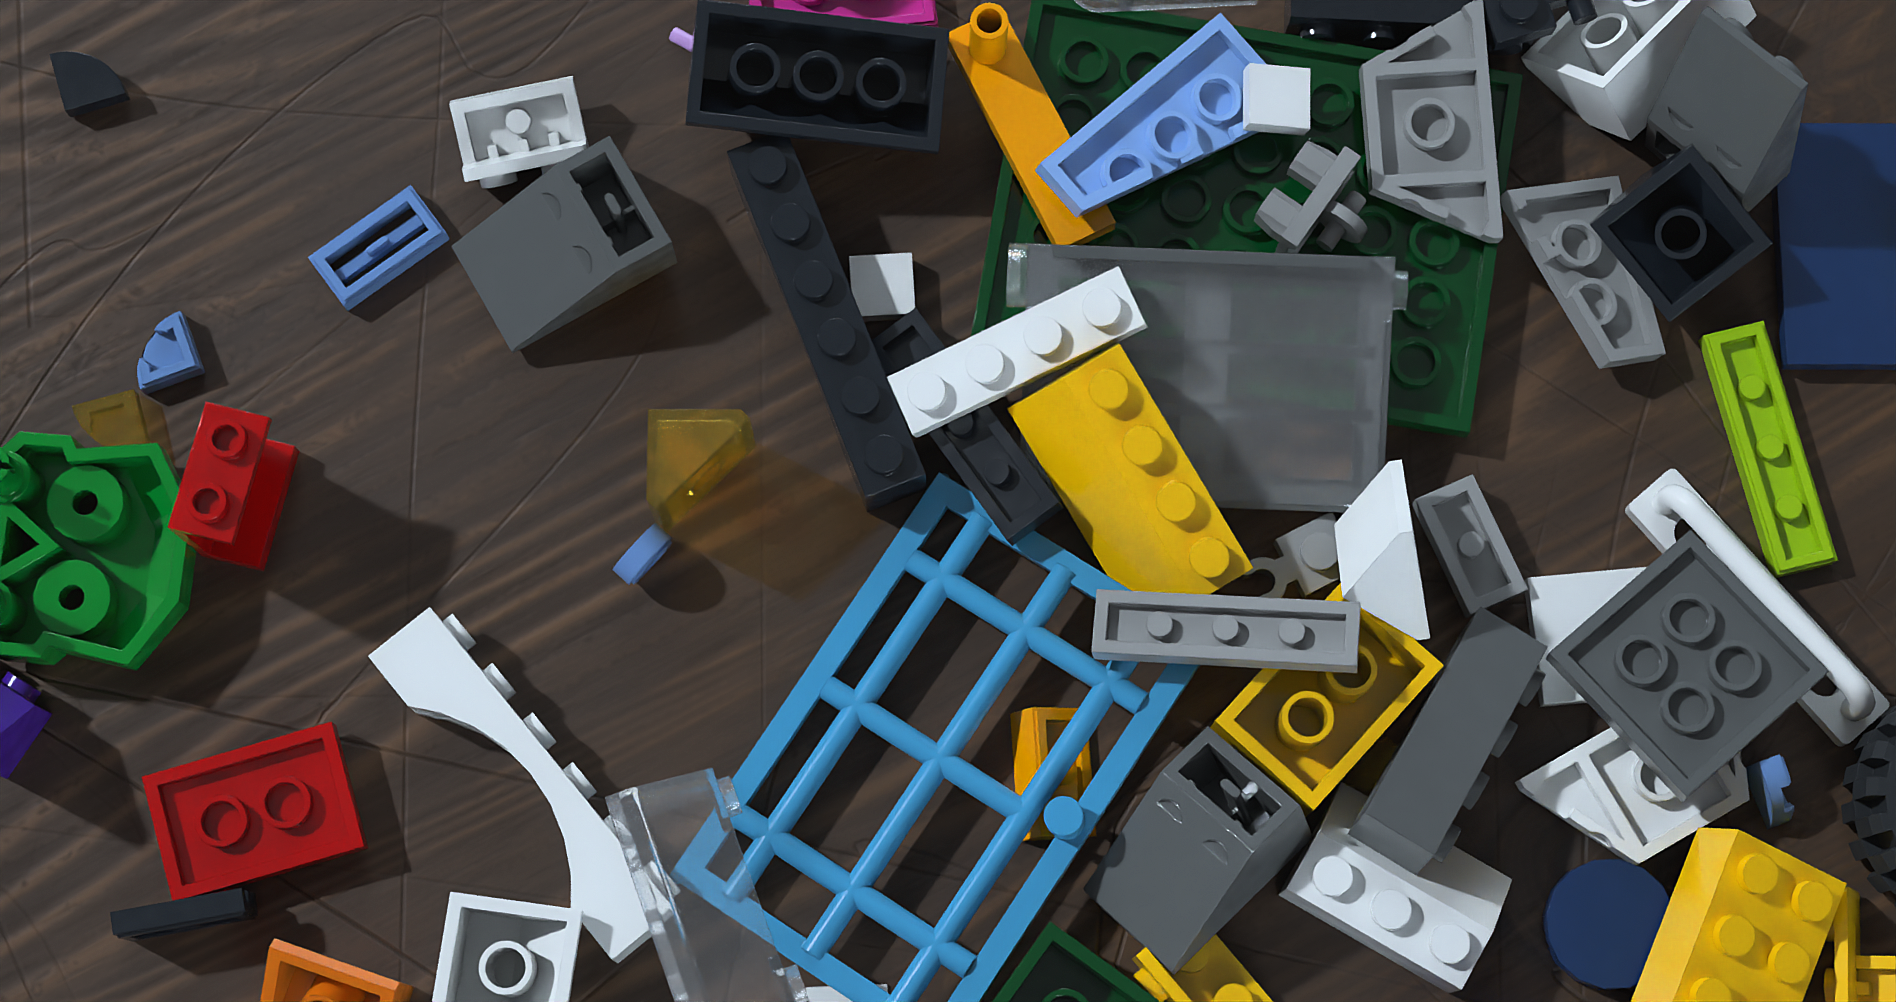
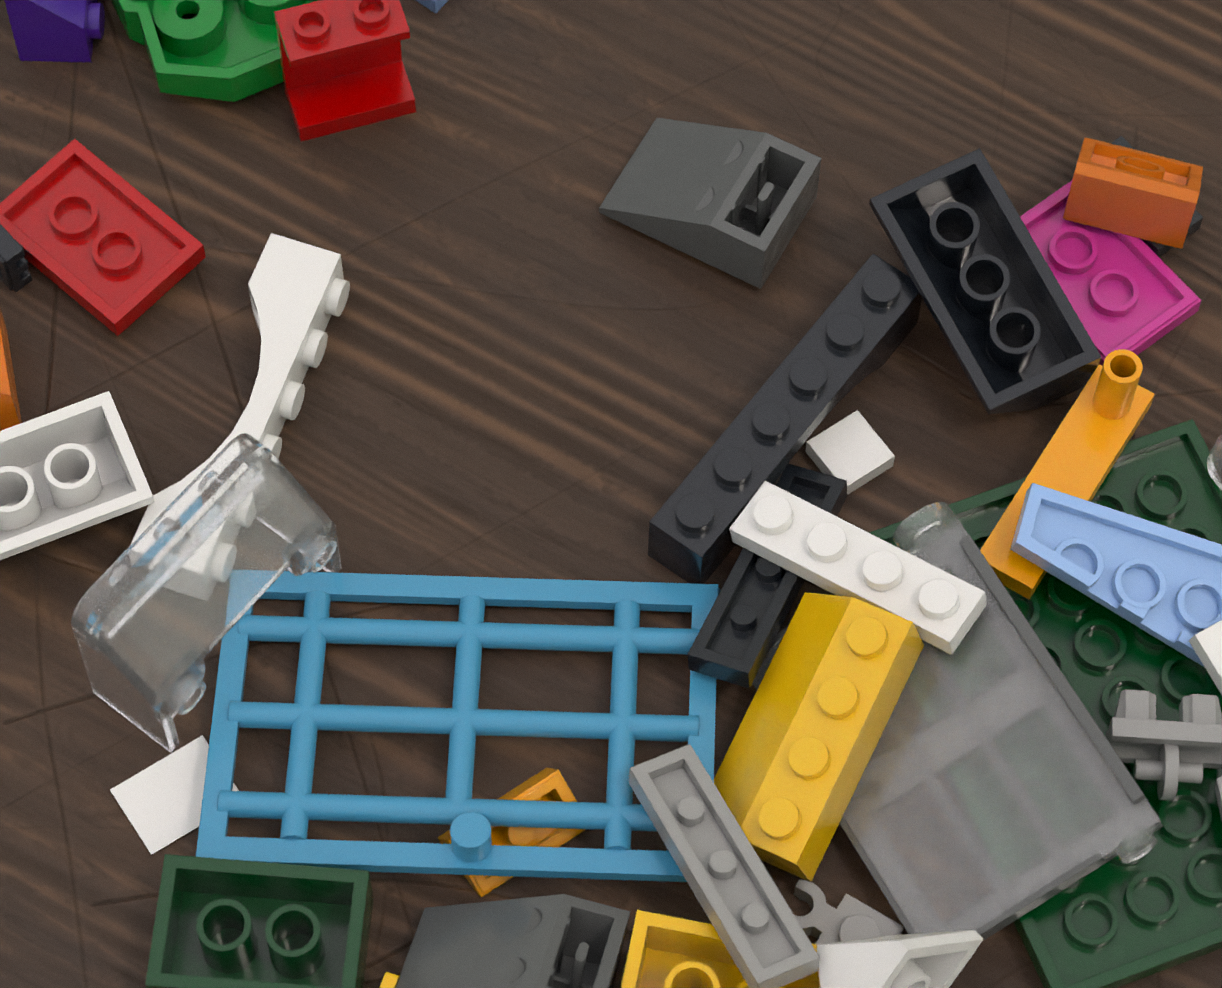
camera: 60 degrees right, 15 degrees down
(393, 265) = (615, 79): medium blue tile -> none
(518, 130) = (786, 104): white bracket -> none
(643, 554) = (492, 394): medium blue tile -> none
(690, 456) = (589, 374): clear yellow slope -> none

